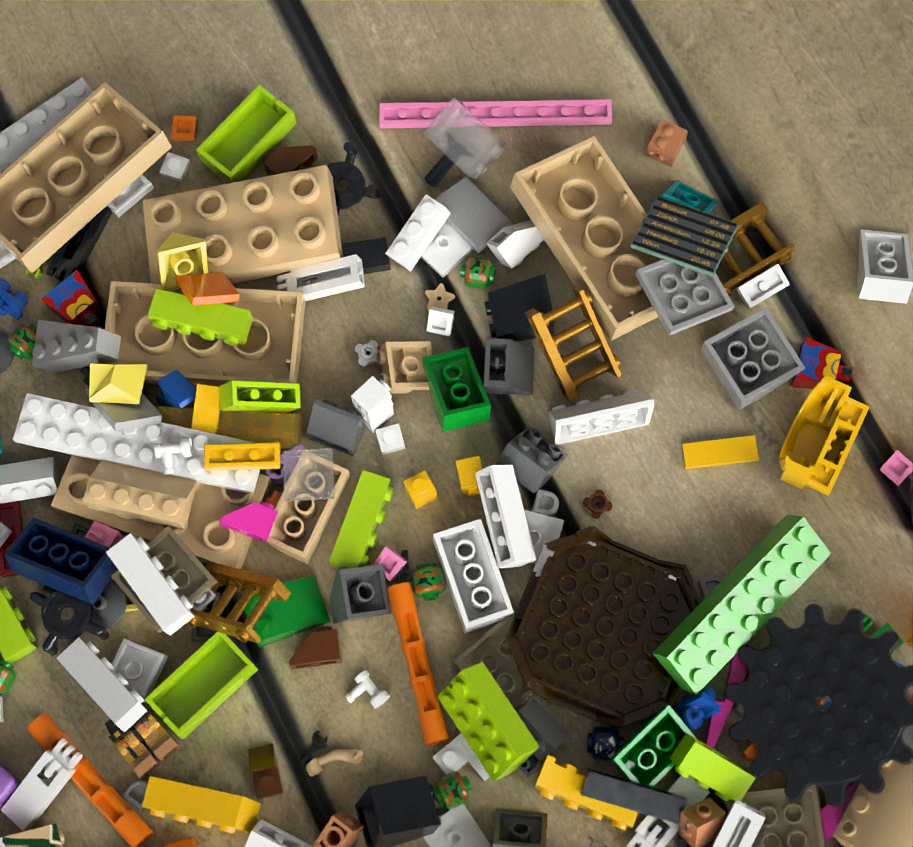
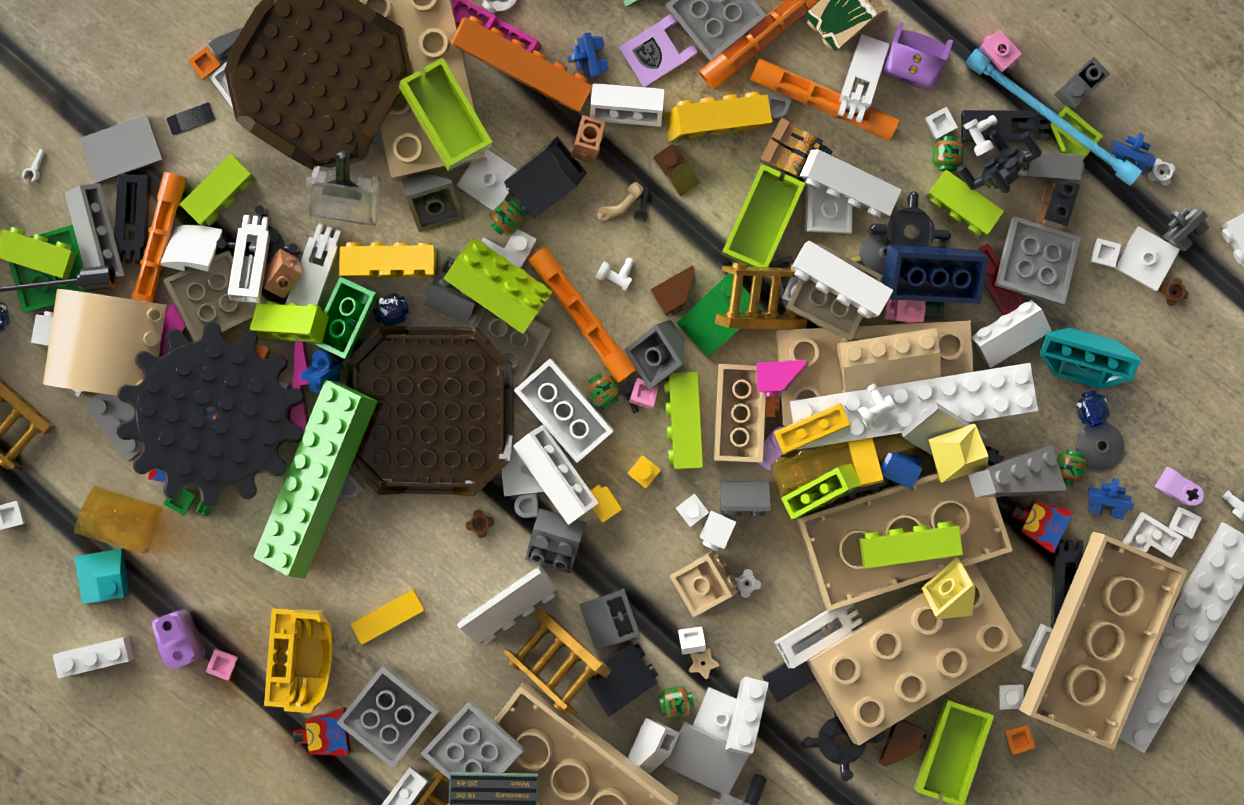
camera: 155 degrees right, 15 degrees up
(207, 288) = (915, 575): orange tile -> none
(308, 474) = (747, 440): clear tile -> none
(456, 389) = (649, 579): green slope -> none
(633, 796) = (348, 270): black tile -> none

